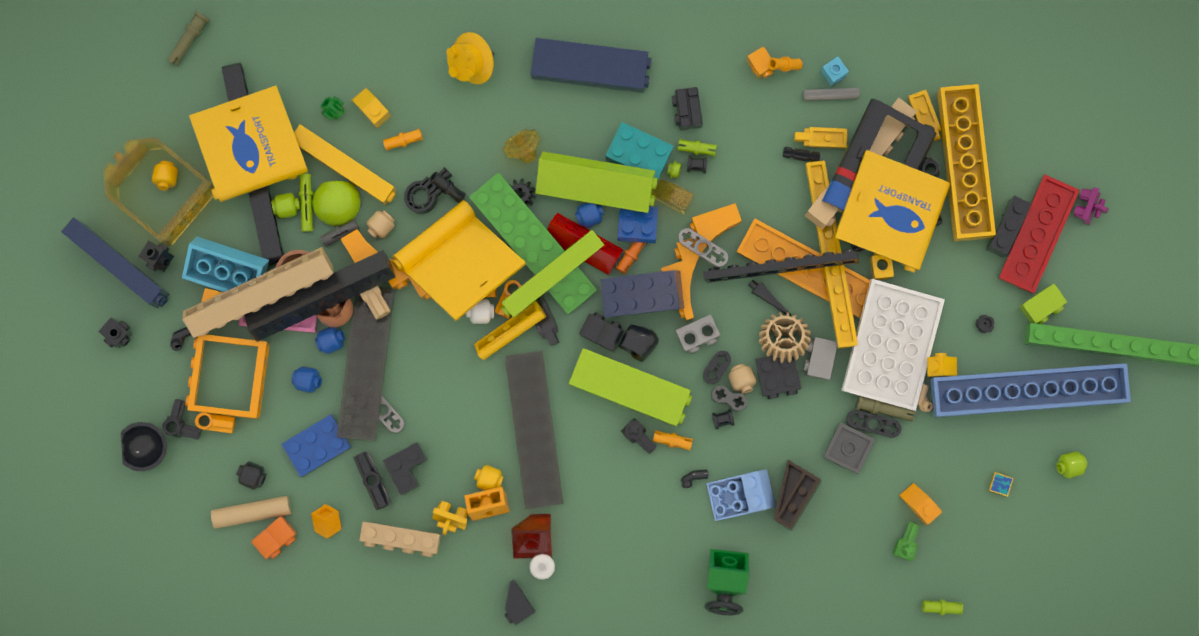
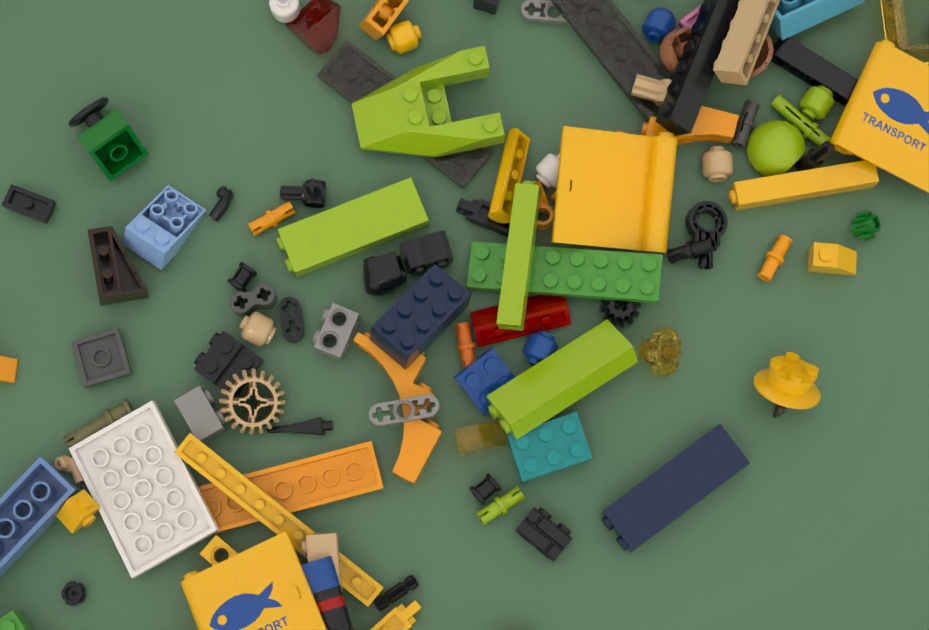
camera: 135 degrees right, 5 degrees down
(322, 172) = (815, 157): none -> black axle
(529, 423) = (414, 111): none -> lime wedge
(674, 169) = (501, 464): lime plate -> none
(788, 265) = (308, 469): black plate -> none
(809, 586) = (29, 204): none -> black plate
(860, 415) = (79, 404): black beam -> none

